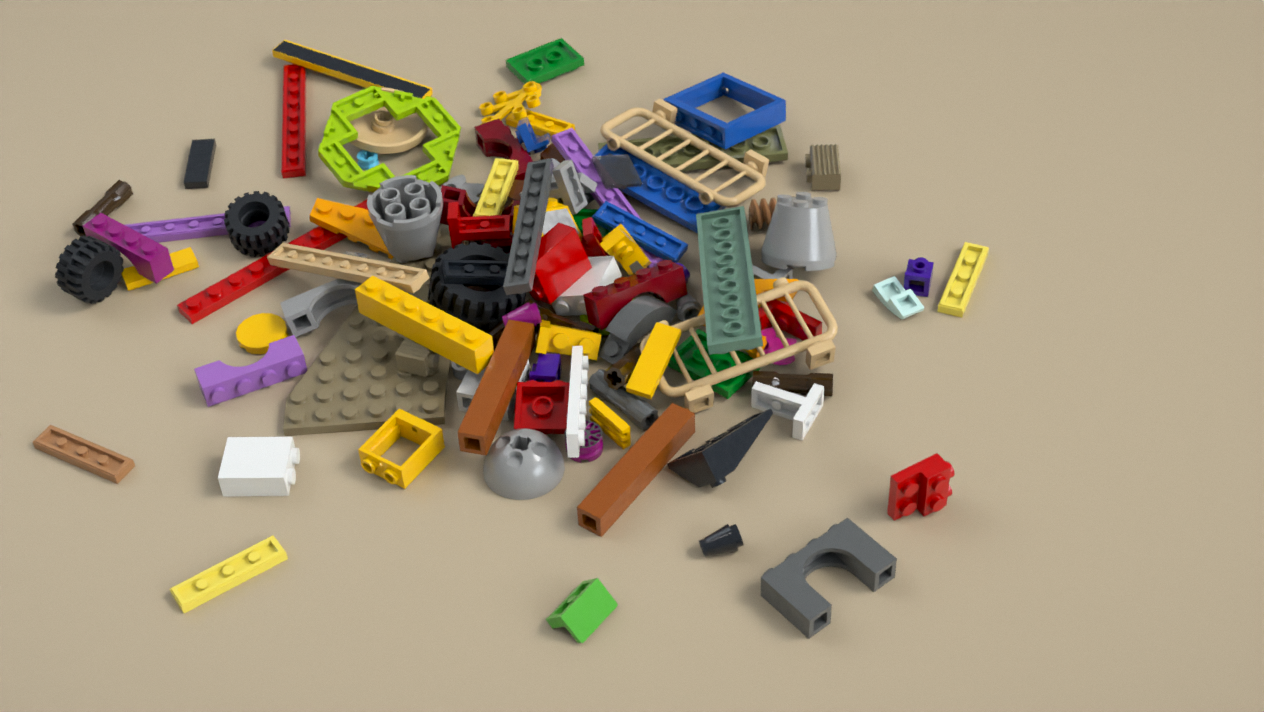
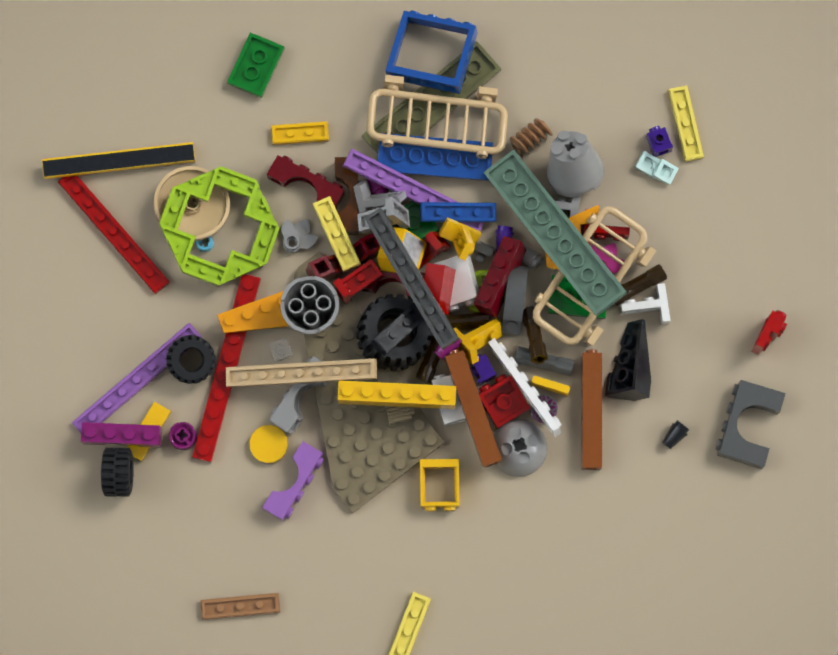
camera: 35 degrees left, 35 degrees up
(113, 198) = (59, 419): dark brown axle -> none
(185, 283) = (182, 436): none -> magenta wheel
(200, 163) = (84, 318): black tile -> none
(258, 466) = (363, 550): white brick -> none
(527, 136) = (316, 159): blue bracket -> none
(530, 92) = (267, 127): yellow plant -> none
(583, 609) = (629, 530): bright green panel -> none
(616, 171) = (407, 167): clear smoke piece -> none
(653, 360) = (553, 329): yellow tile -> none
(823, 167) = (534, 68): dark tan brick -> none

